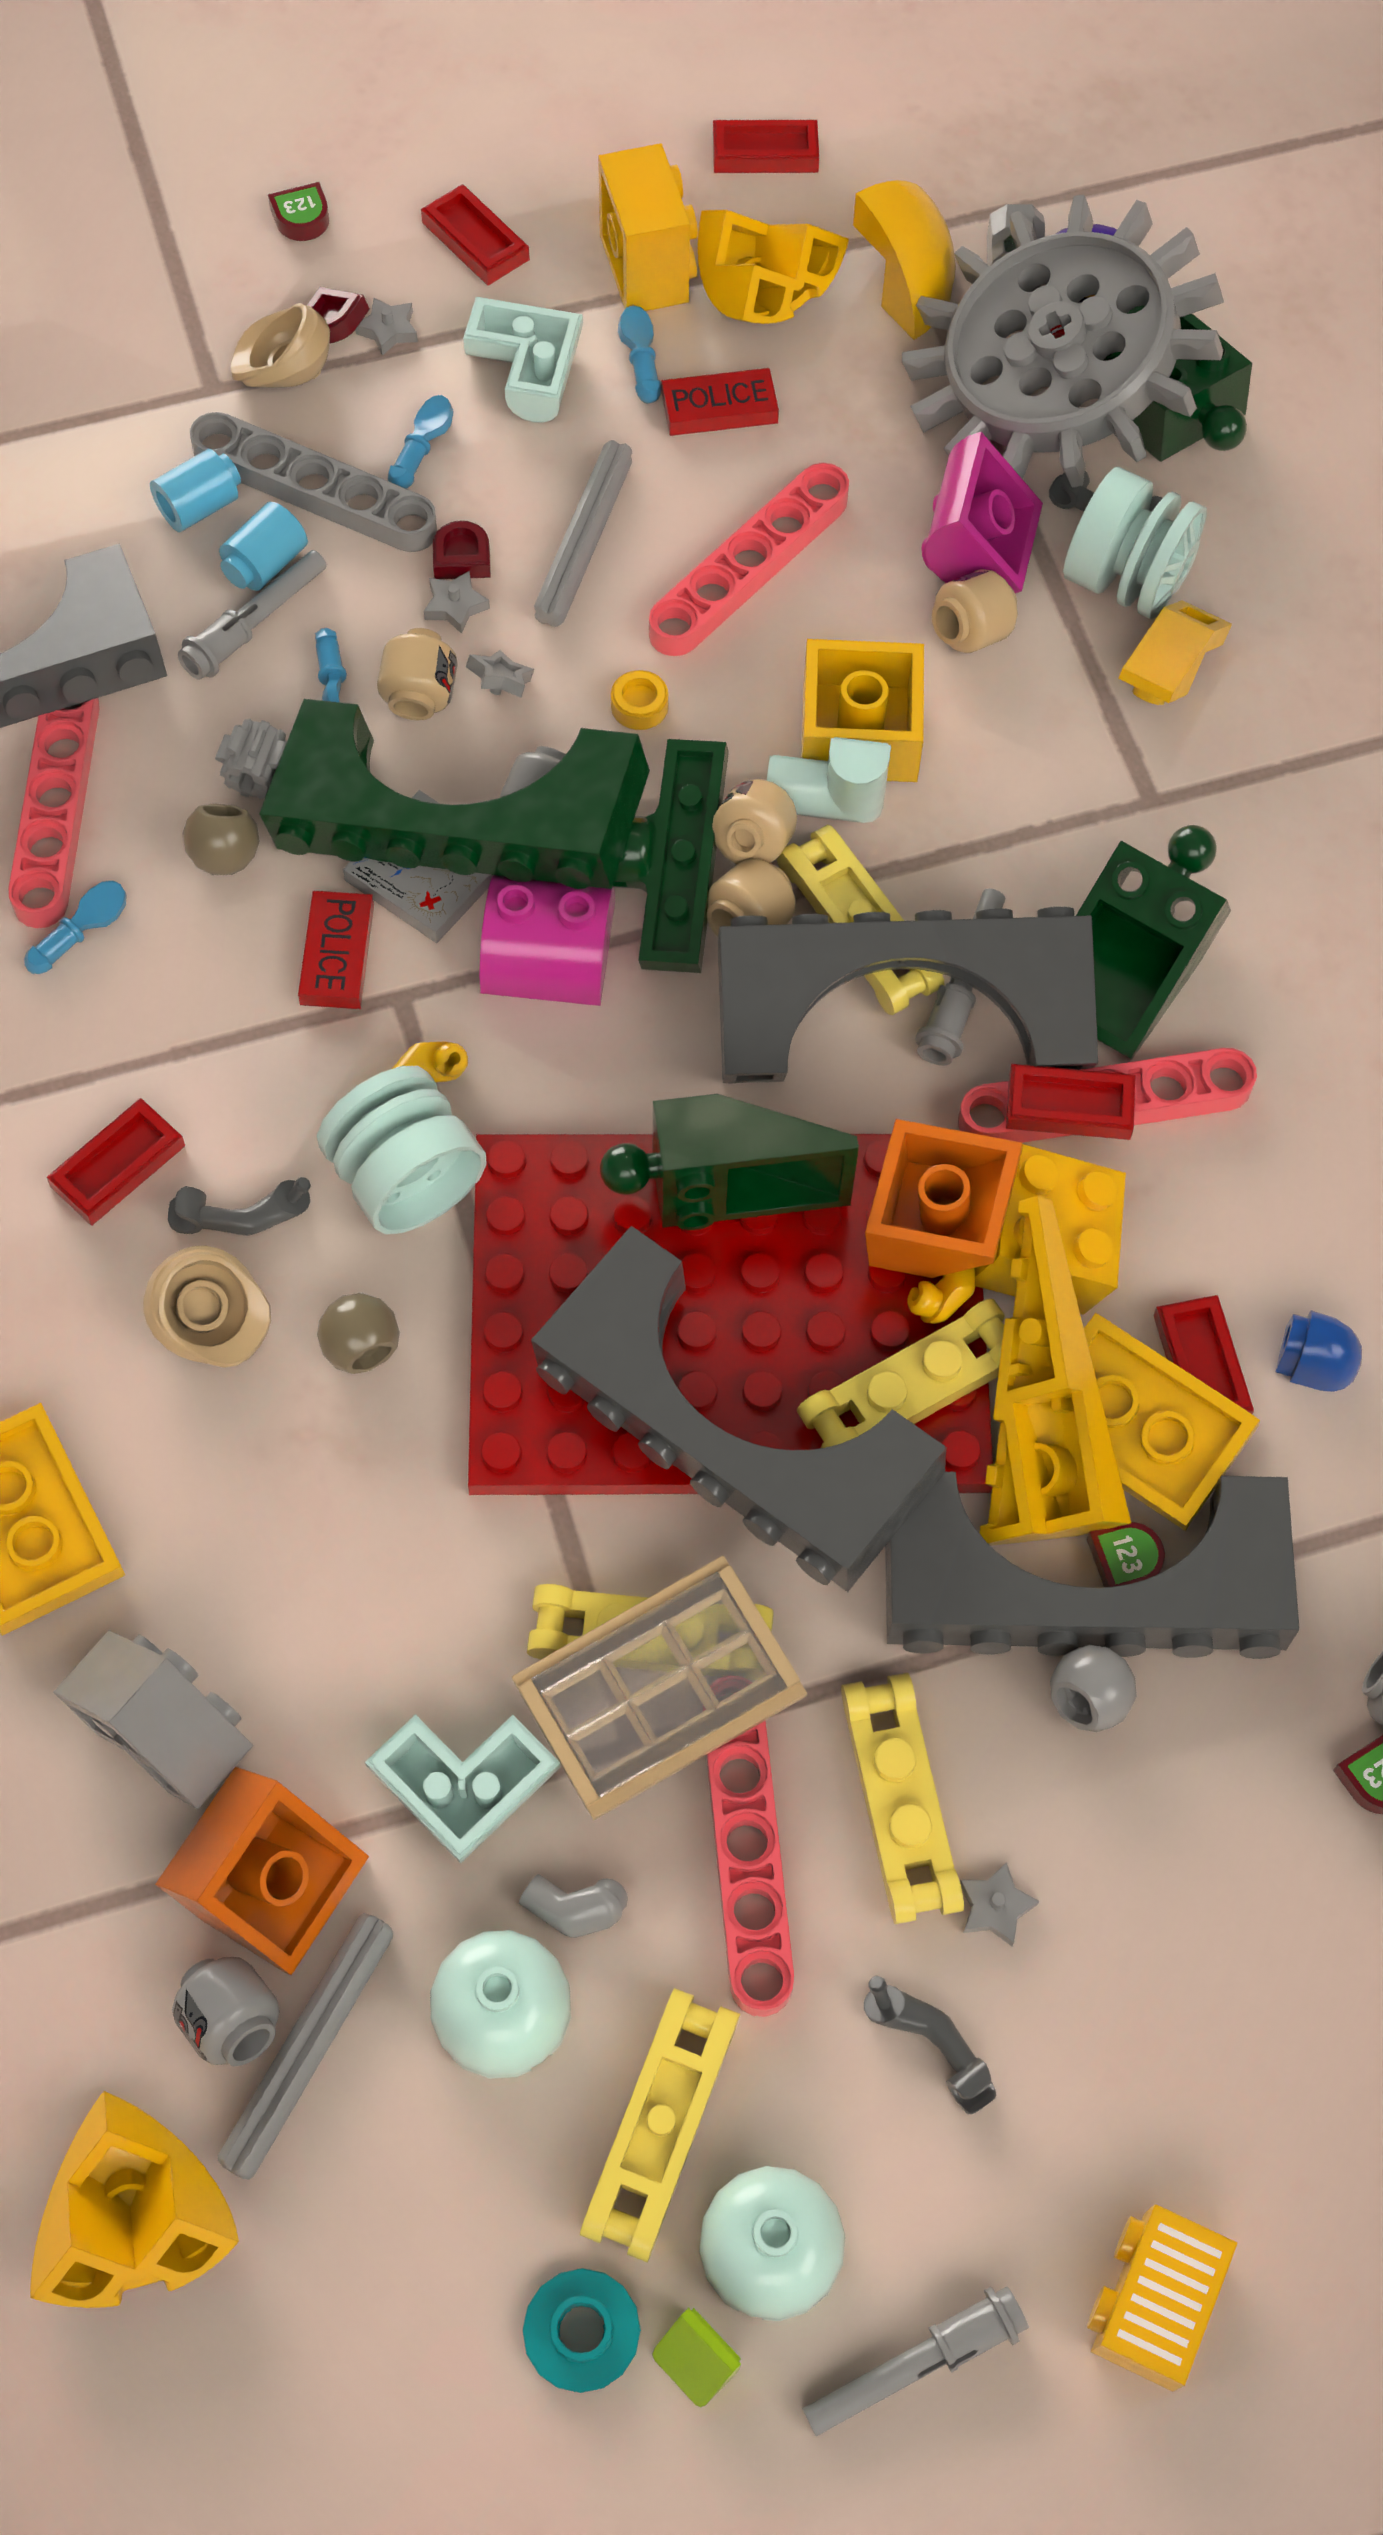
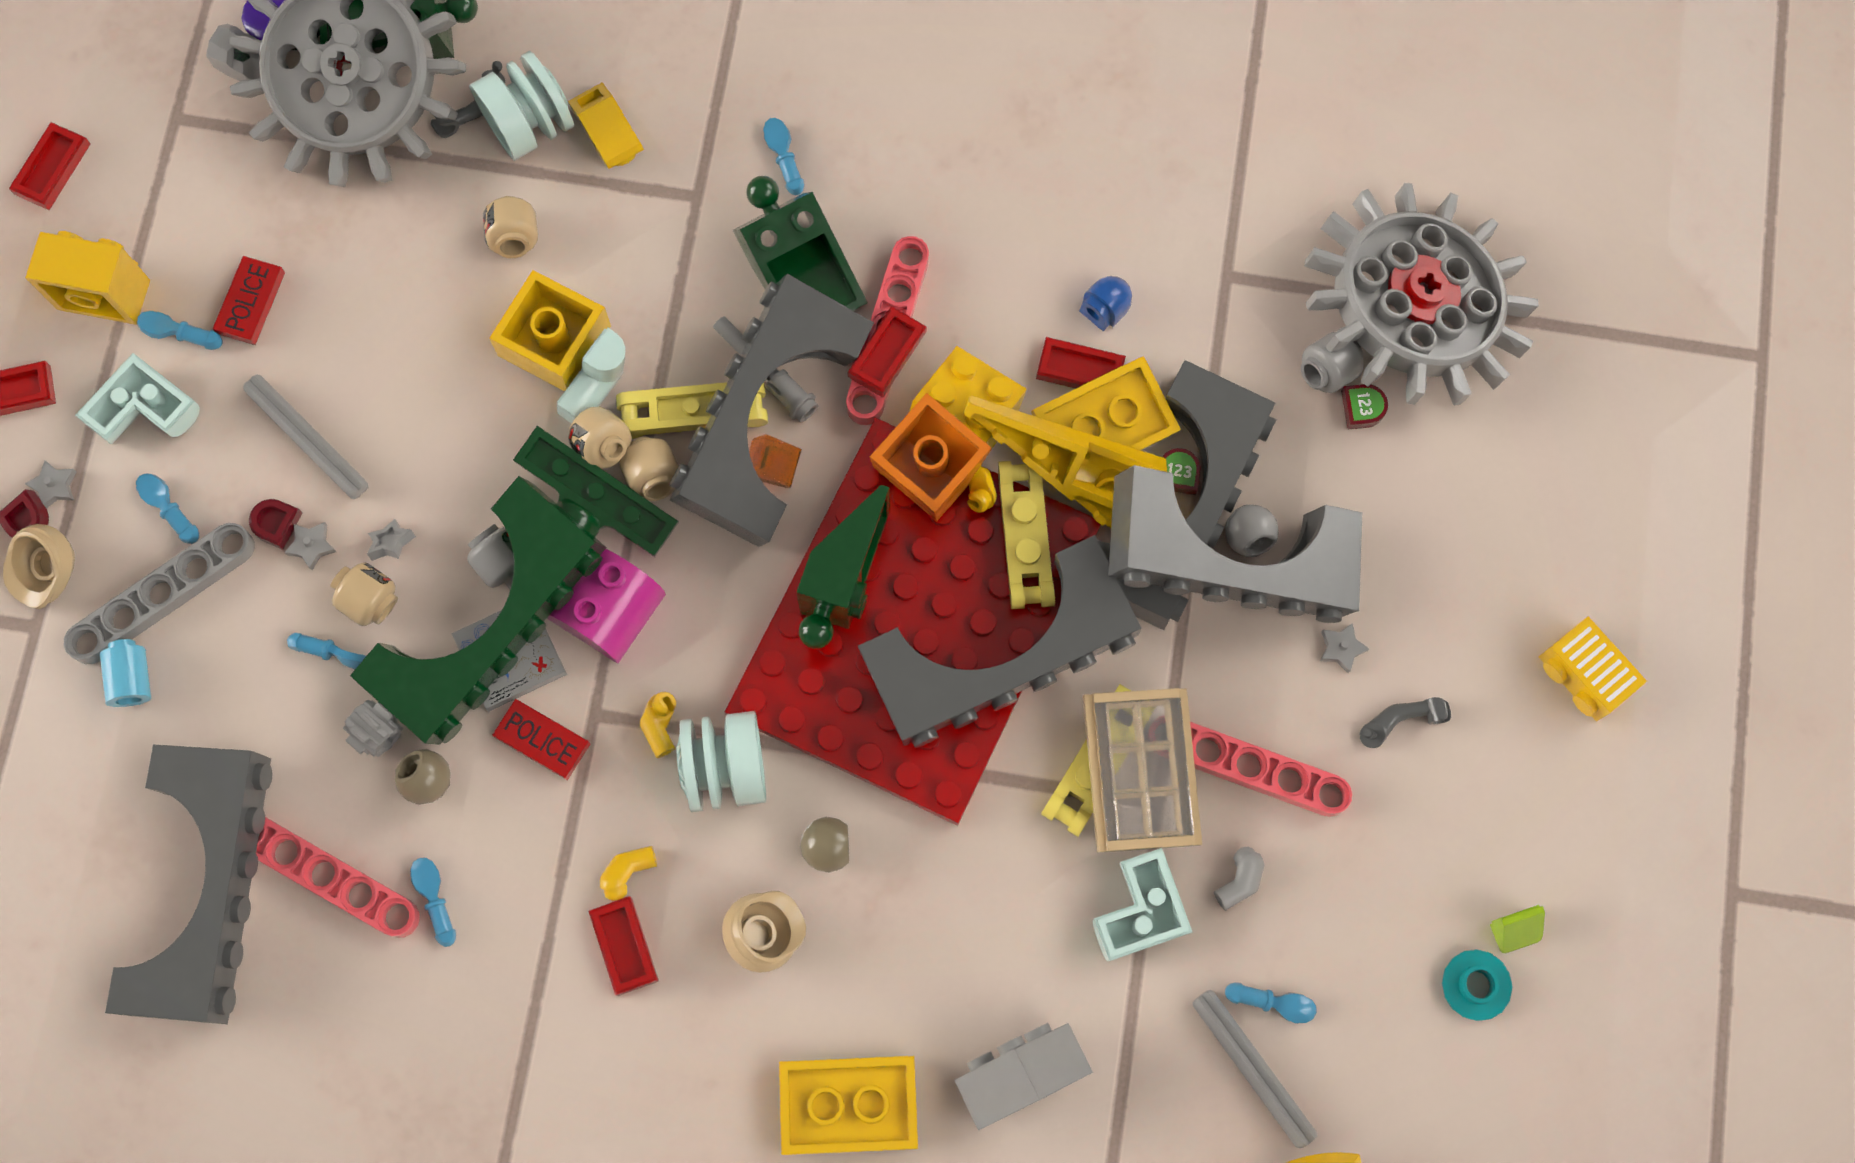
camera: 65 degrees left, 10 degrees up
(190, 1215) = (709, 856): dark grey piece -> none
(204, 653) = (261, 718): light grey pin -> none
(216, 1111) = (620, 869): none -> yellow arm
(226, 2011) = (1218, 1107): light grey head -> none
(262, 547) = (200, 650): medium azure brick -> none
(263, 1869) = (1142, 1051): orange slope -> none
(422, 2060) = (1291, 1006): none -> dark azure piece
(500, 2004) = (1279, 947): light aqua cylinder -> none
(639, 700) = (455, 463): yellow tile -> none
(660, 2124) = (1386, 888): light yellow plate -> none
(741, 580) = (386, 362): coral beam -> none
(764, 269) = (161, 218): yellow brick -> none
(772, 2243) = (1475, 859): light aqua cylinder -> none
(845, 1045) = (774, 460): none -> clear orange slope
(901, 1799) = (1261, 667): light yellow plate -> none
(915, 242) = (202, 114): yellow brick -> none
(951, 2344) = (1567, 790): light grey pin -> none
(971, 1540) = (1160, 549): none -> arch
(981, 516) = (446, 187): dark pink brick -> none
(1287, 853) = (778, 140): none -> dark azure piece

